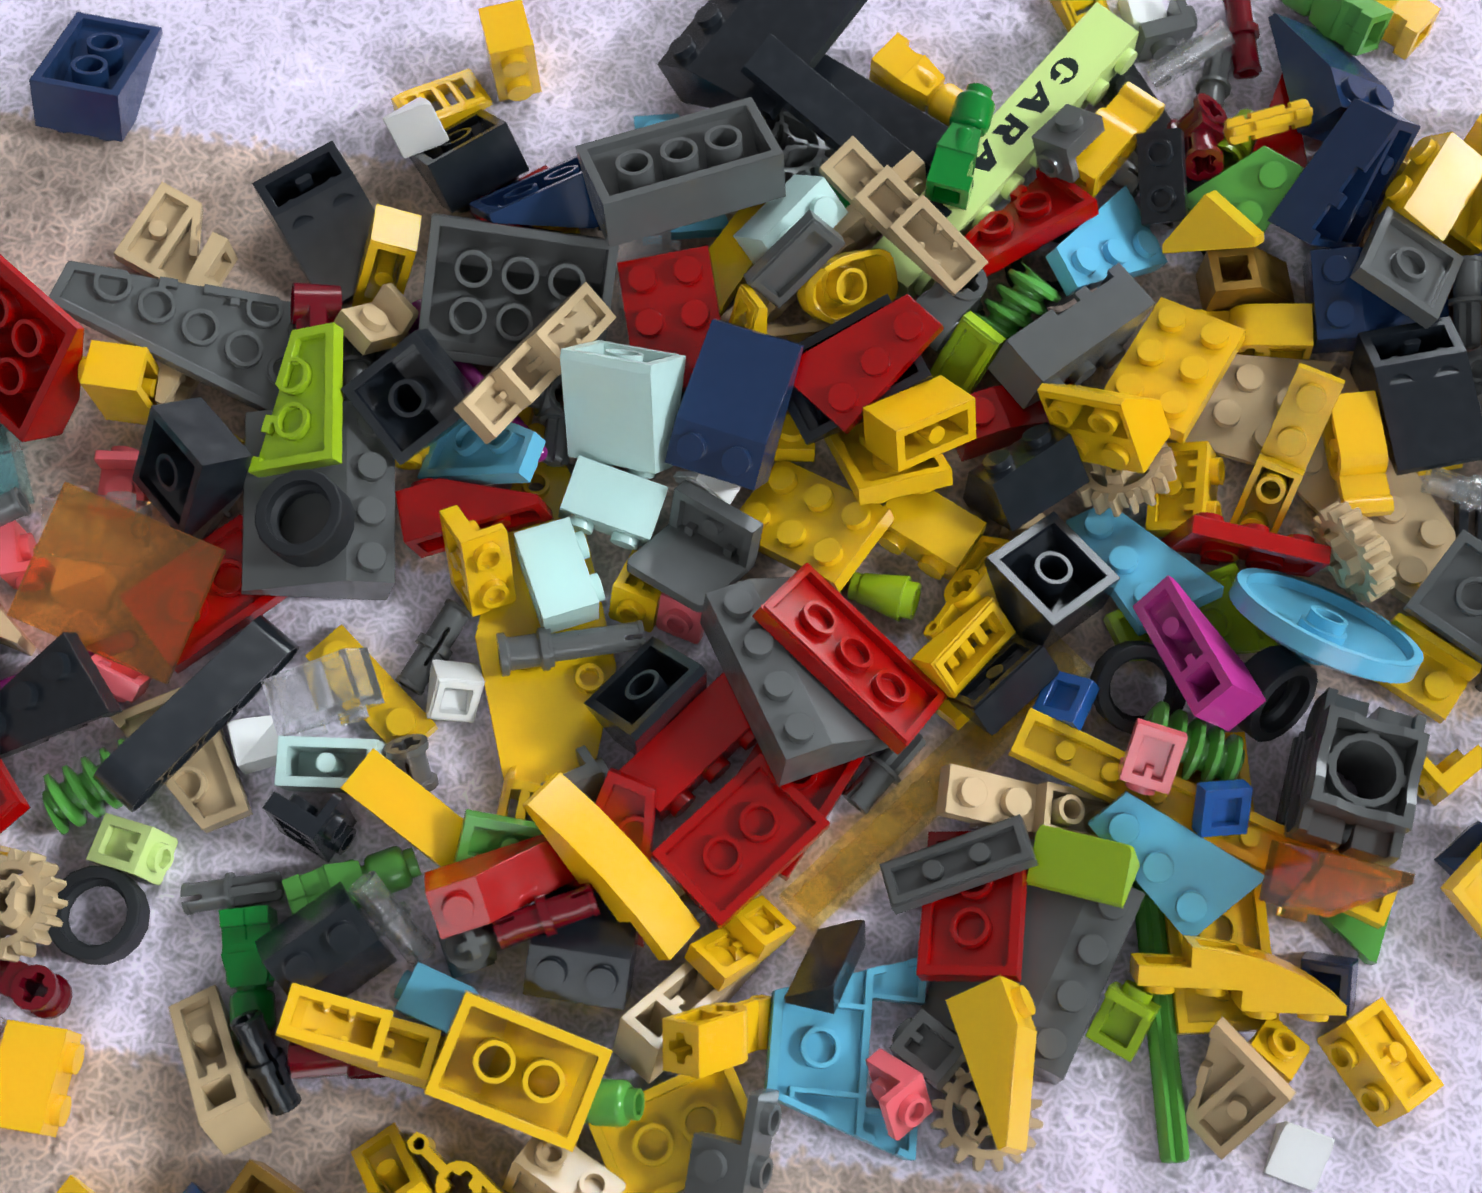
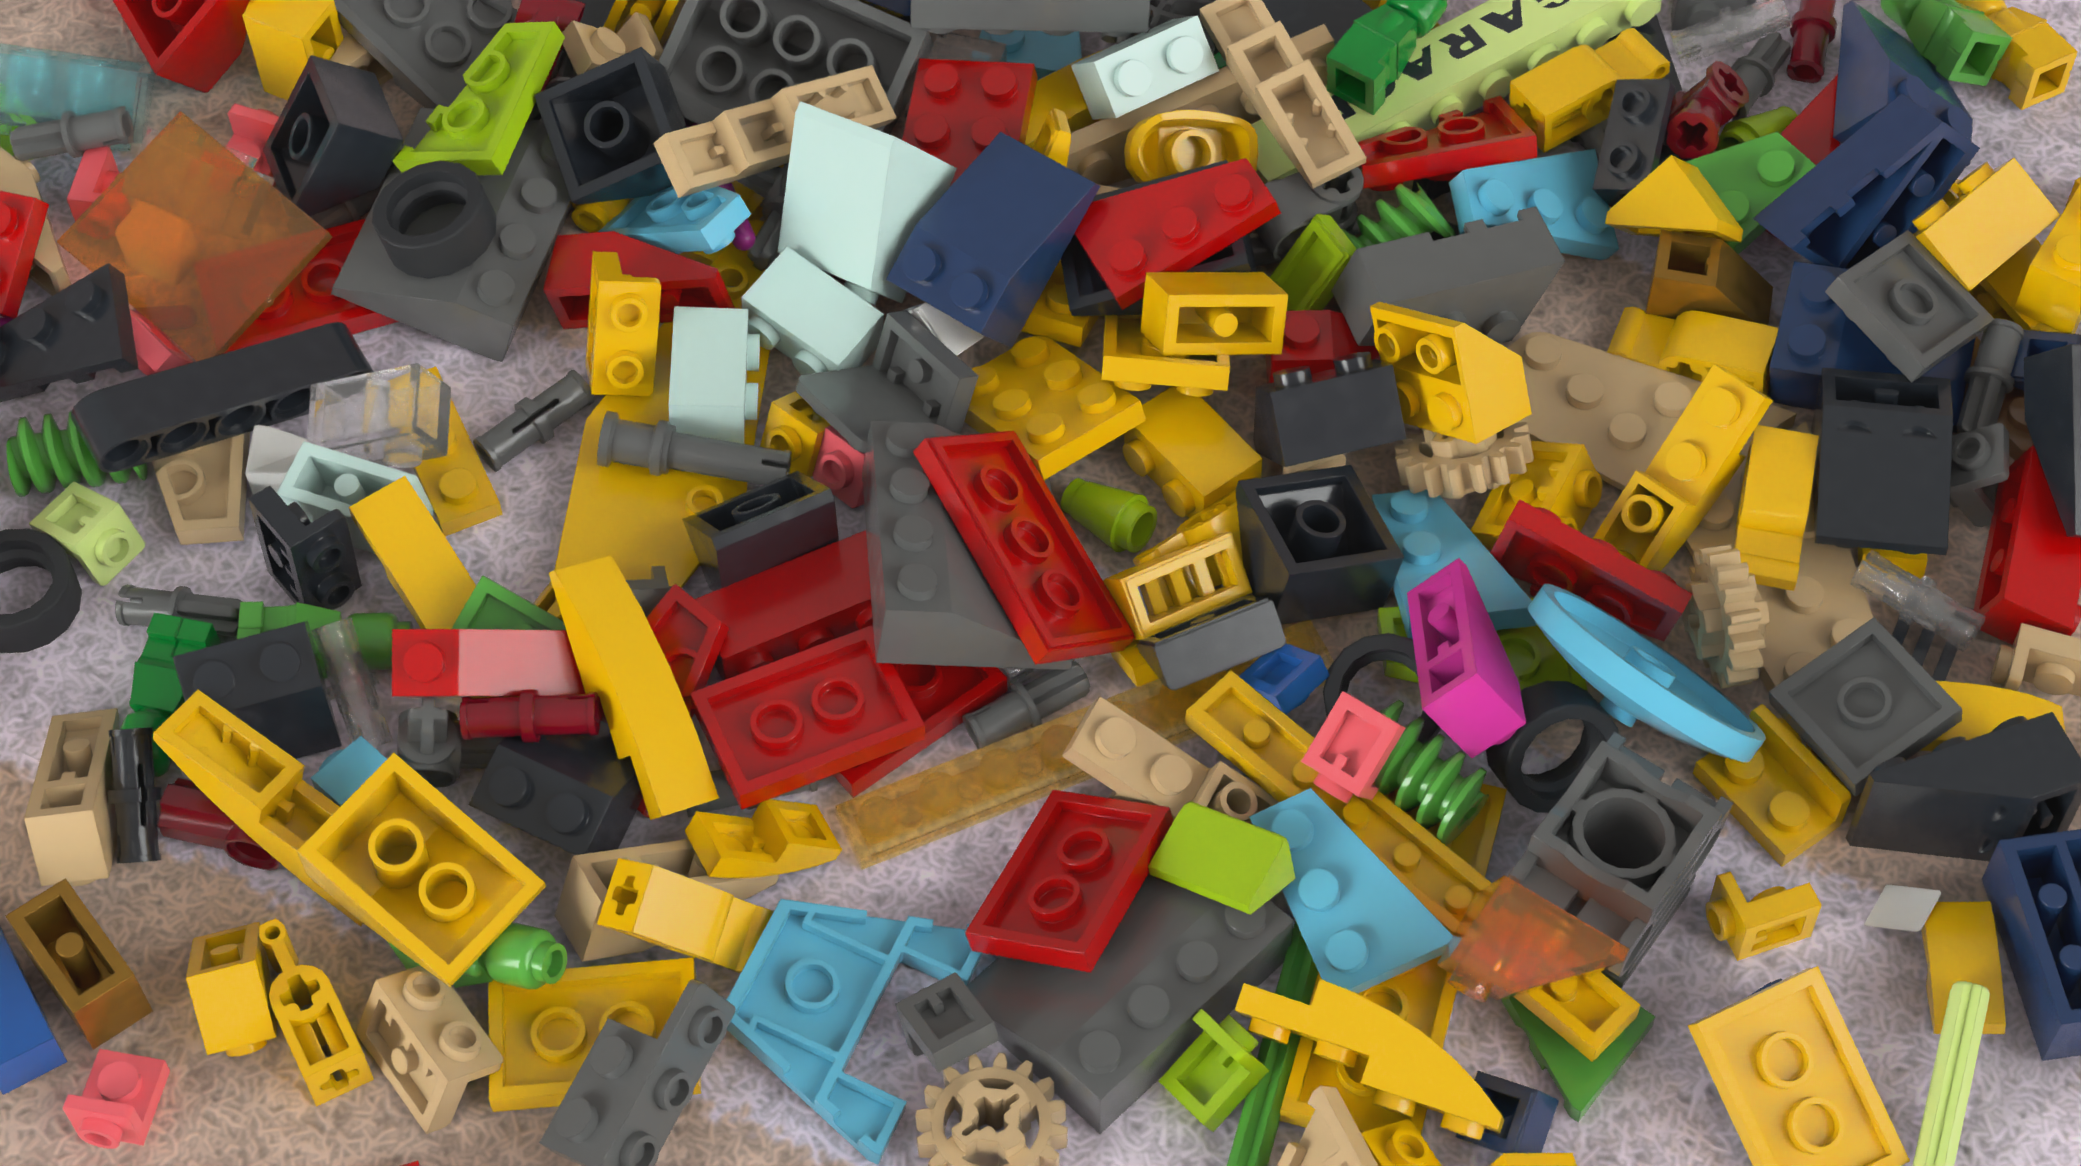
camera: 20 degrees right, 15 degrees down
(410, 756) = (455, 522): dark grey bush -> none
(454, 691) = (535, 472): white slope -> none
(794, 259) = (1127, 94): dark grey tile -> none
(827, 967) = (861, 894): black slope -> none
(899, 1093) = (885, 1060): coral bracket -> none
(958, 864) = (1069, 824): dark grey tile -> none
(1000, 1052) = (1026, 1035): yellow slope -> none
(1064, 139) = (1520, 59): dark grey bracket -> none
(1179, 361) = (1583, 350): yellow plate -> none
(1222, 808) = (1425, 838): blue plate -> none
(1268, 122) = (1792, 108): yellow axle -> none

